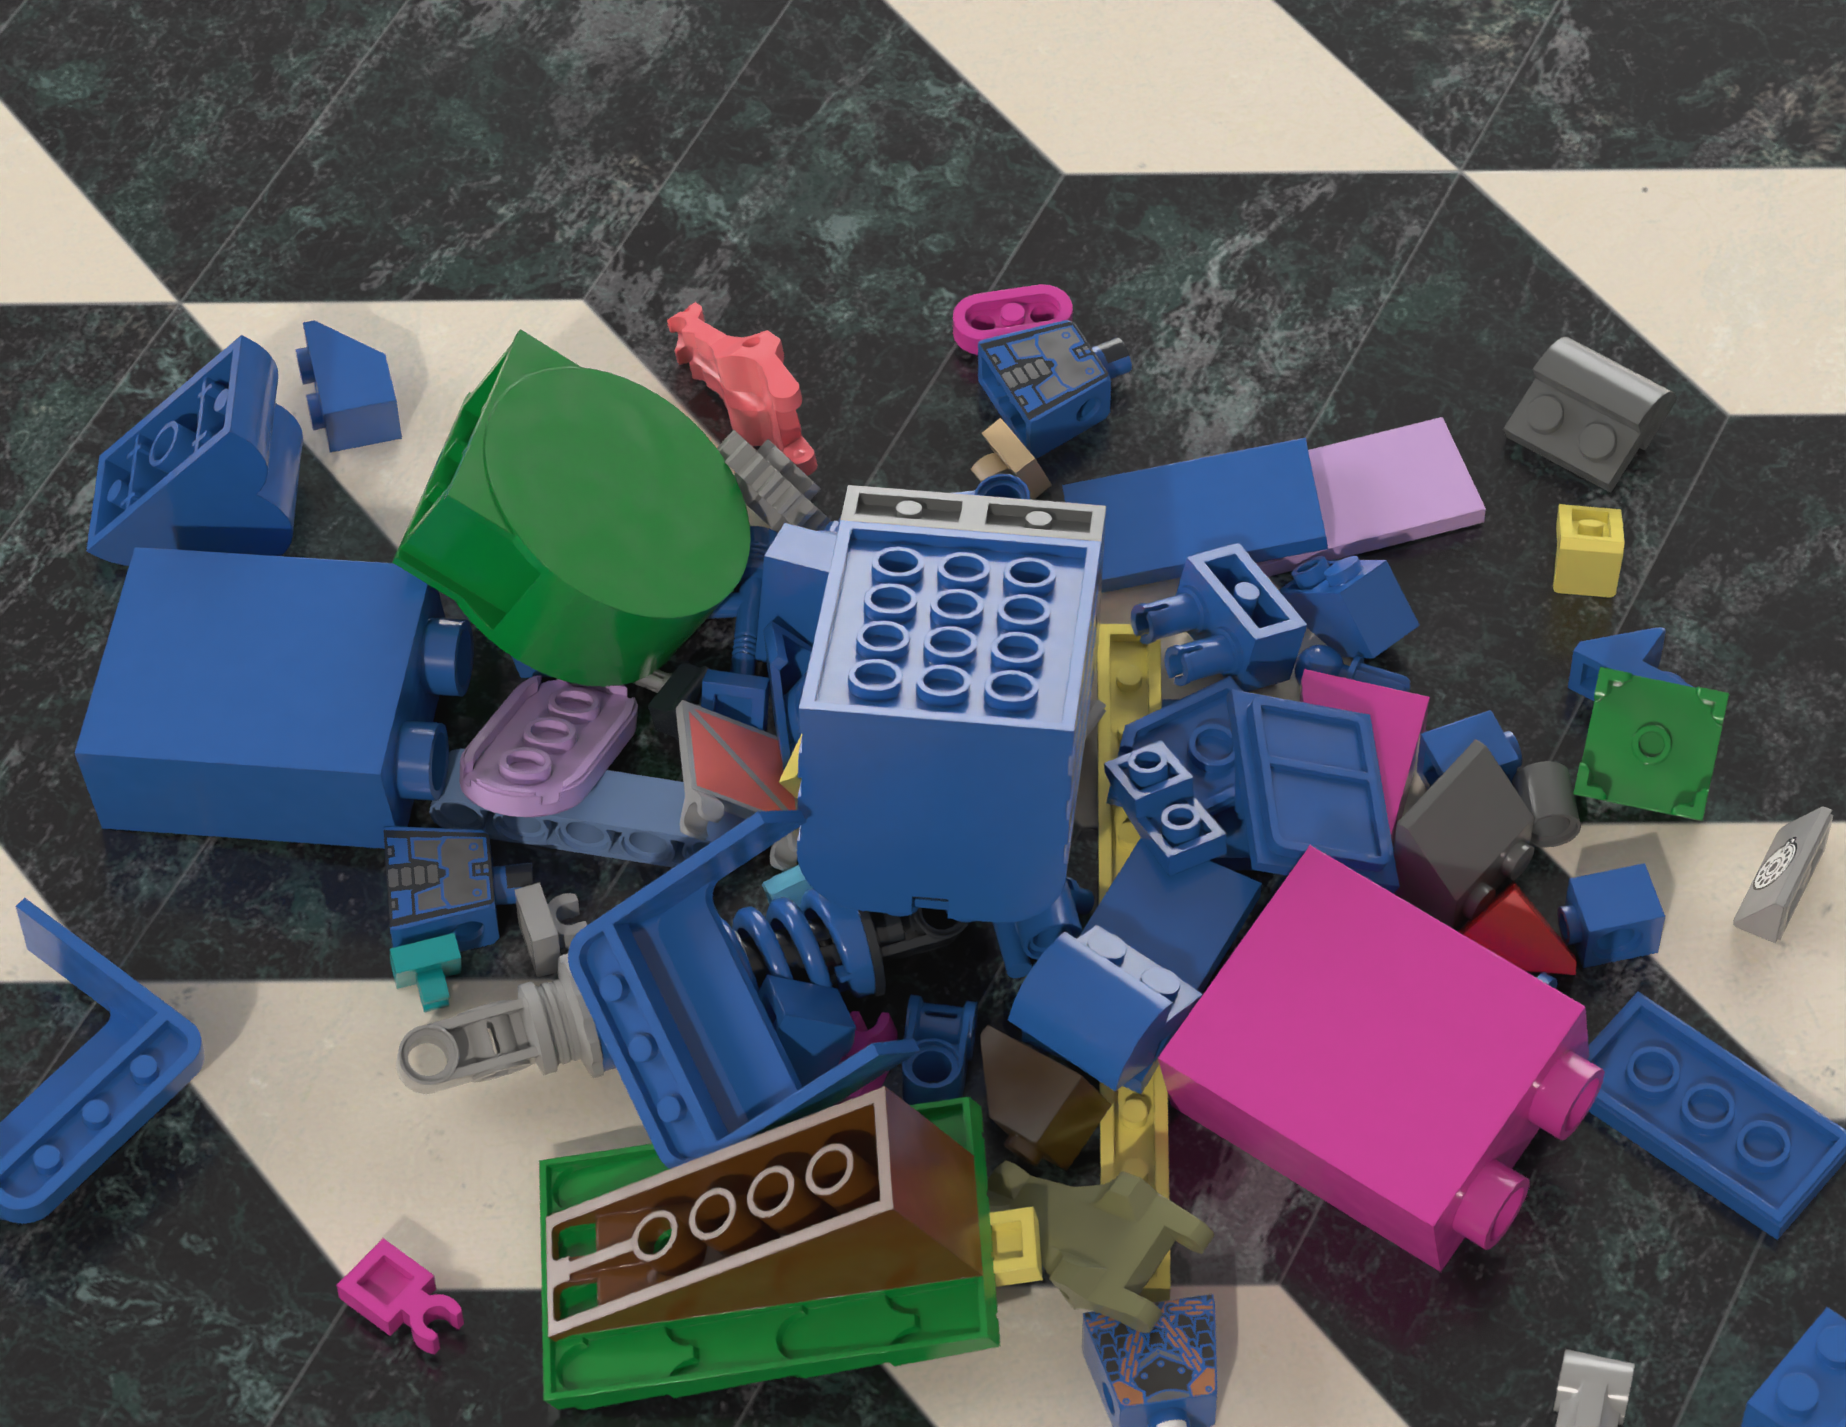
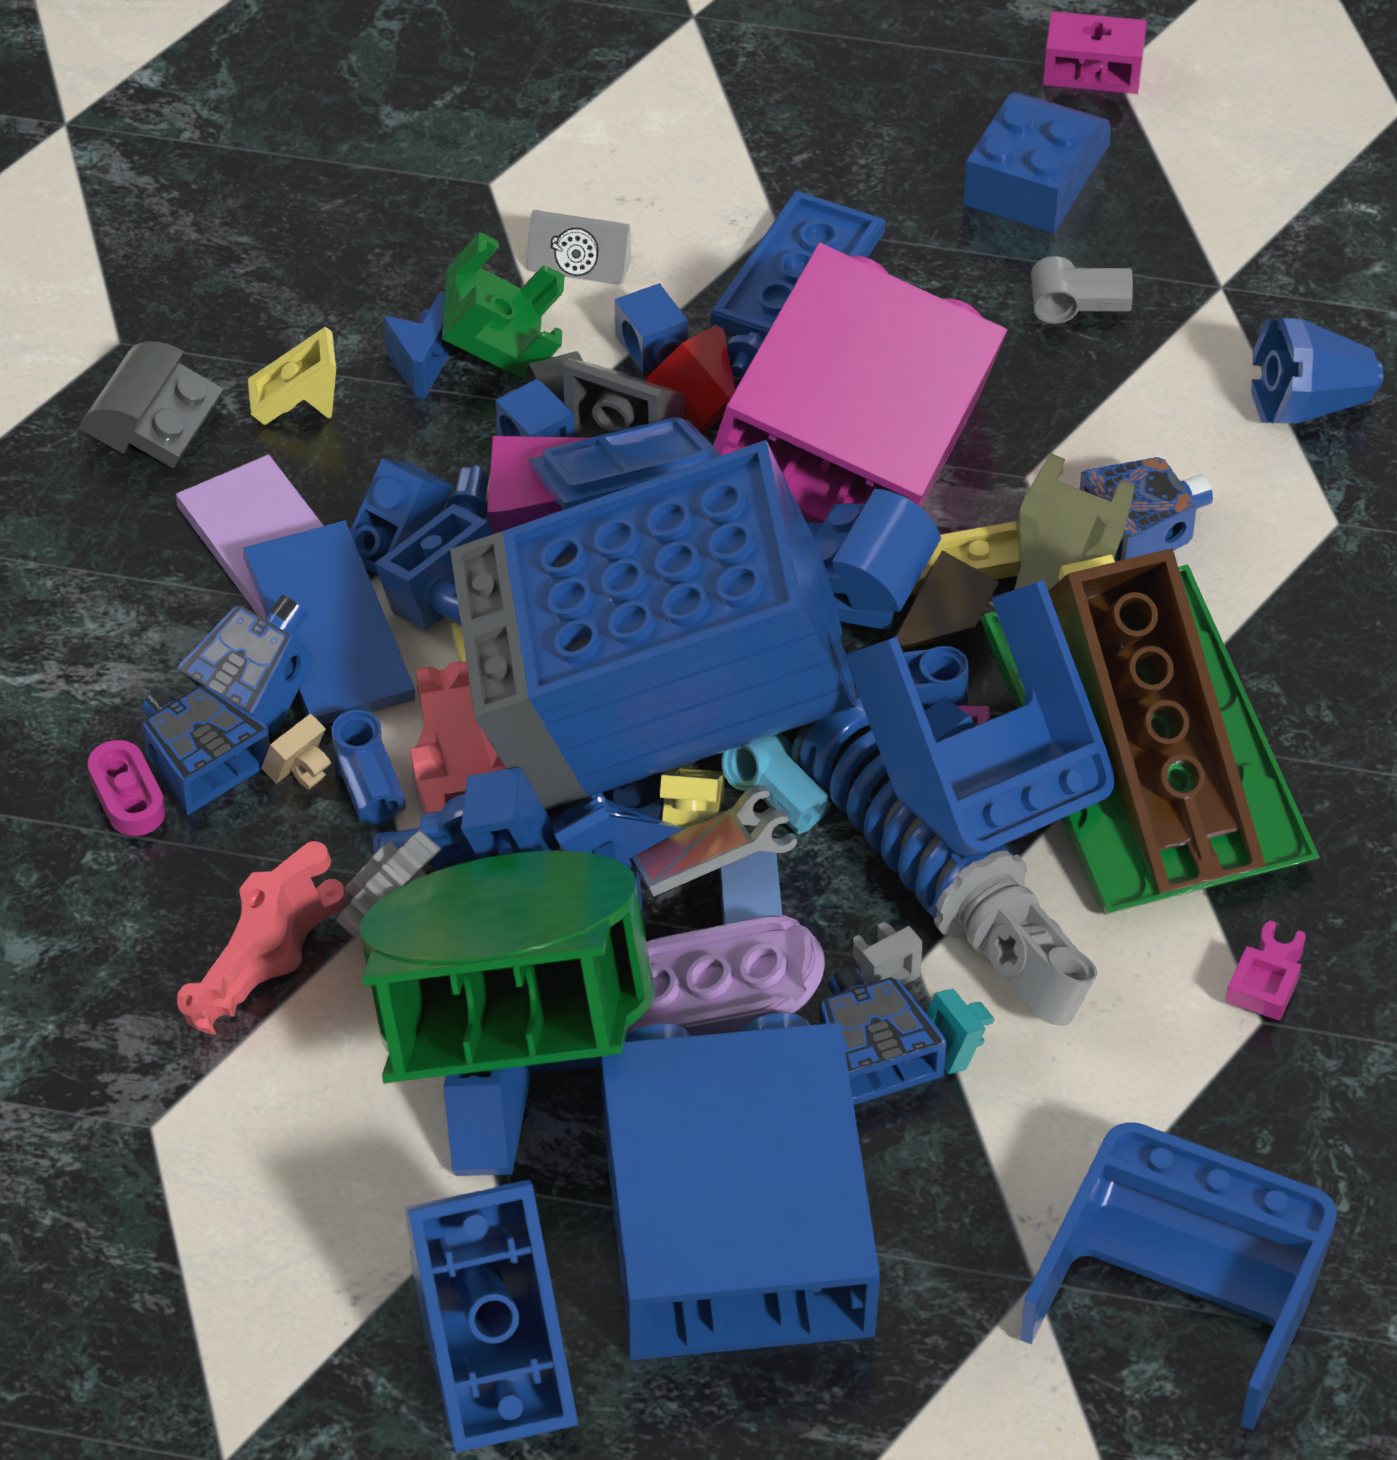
camera: 105 degrees left, 5 degrees down
(352, 389) = (325, 1261): blue slope -> none
(1128, 427) = (254, 660): none -> torso

